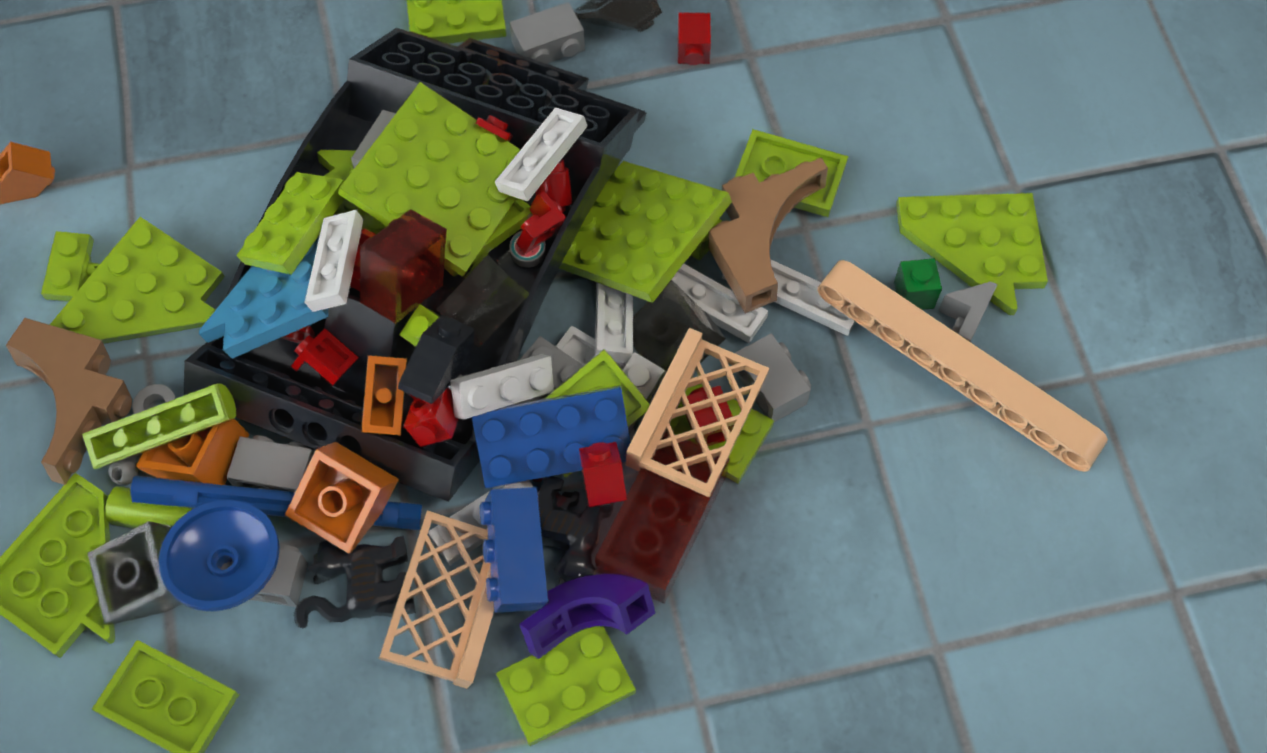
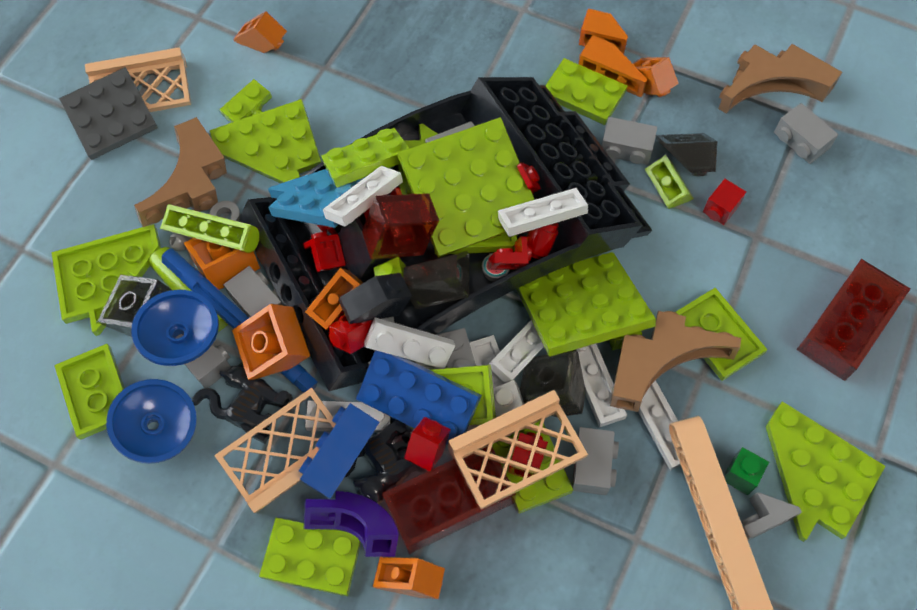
camera: 40 degrees right, 0 degrees up
(266, 654) = (147, 403): none -> blue dish
(621, 54) = (668, 182): none -> lime slope
(684, 622) = (409, 577): none -> orange slope
(903, 74) = (853, 320): none -> clear red brick

